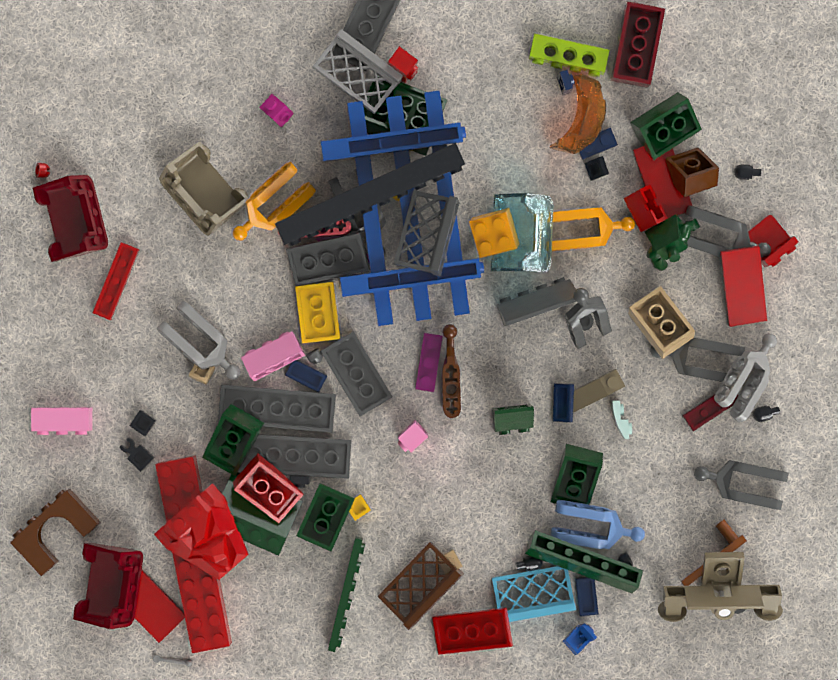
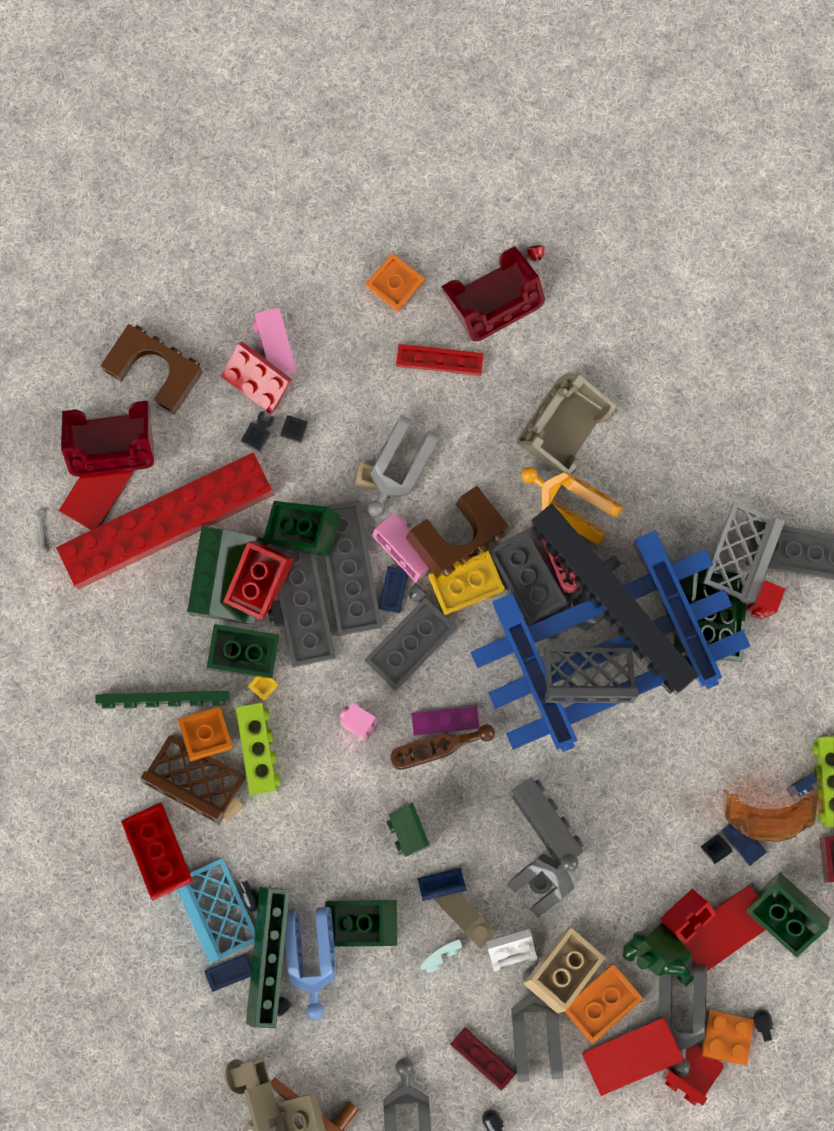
camera: 75 degrees right, 10 degrees down
(35, 300) = (395, 282): none -> orange plate
(88, 444) = (256, 377): none -> plate
(205, 534) = (191, 525): red wedge -> none
(276, 110) = (674, 479): dark pink bracket -> none
(291, 327) = (443, 556): none -> reddish brown arch
(385, 566) = (205, 733): none -> orange plate
(439, 534) = (246, 716): none -> lime brick
(494, 233) = (610, 752): light orange brick -> none
(534, 228) = (620, 788): clear light blue windscreen -> none
(579, 638) = (179, 977): blue bracket -> none
(604, 224) = (653, 877): light orange piece -> none
(632, 360) = (511, 949): none -> white plate
(692, 171) = (745, 959): reddish brown slope -> none
(695, 297) = (603, 1003): none -> orange plate
(749, 204) = (727, 1037): none -> orange plate
(756, 383) = (521, 1101): light grey piece -> none

